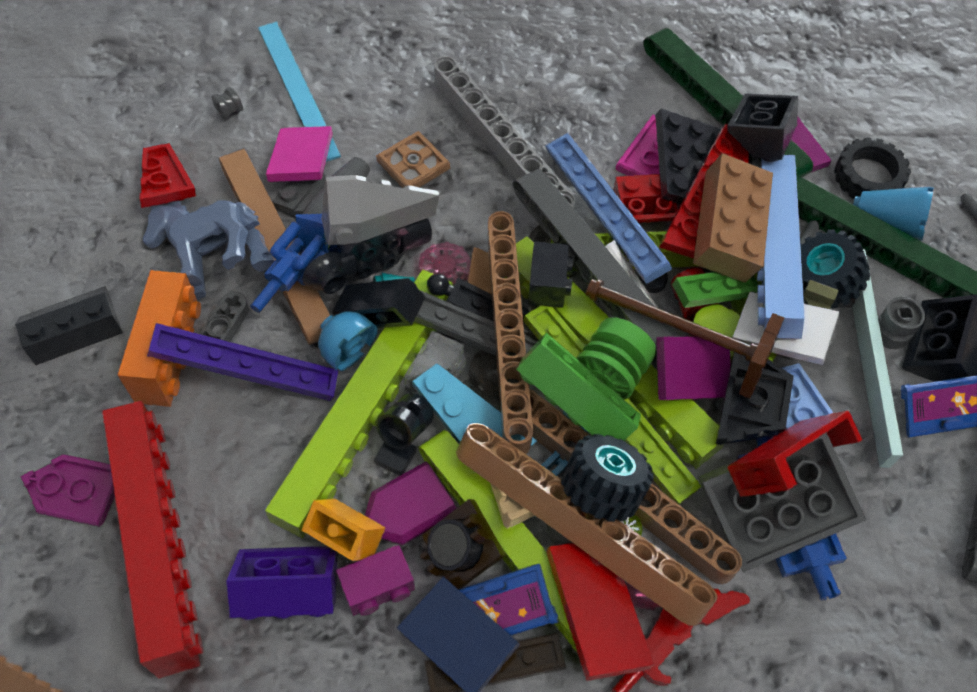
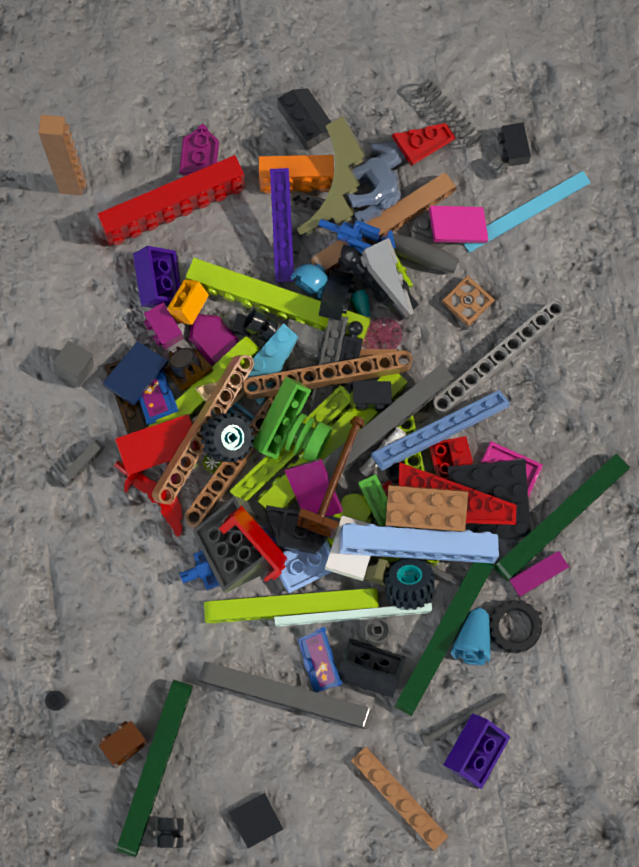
camera: 85 degrees right, 15 degrees up
(159, 243) = (347, 152): none -> olive arch
(175, 117) = (420, 91): none -> dark grey piece
(199, 80) = (515, 144): none -> black brick
(765, 124) = (520, 532): black slope -> none
(867, 460) = (289, 605): none -> lime beam

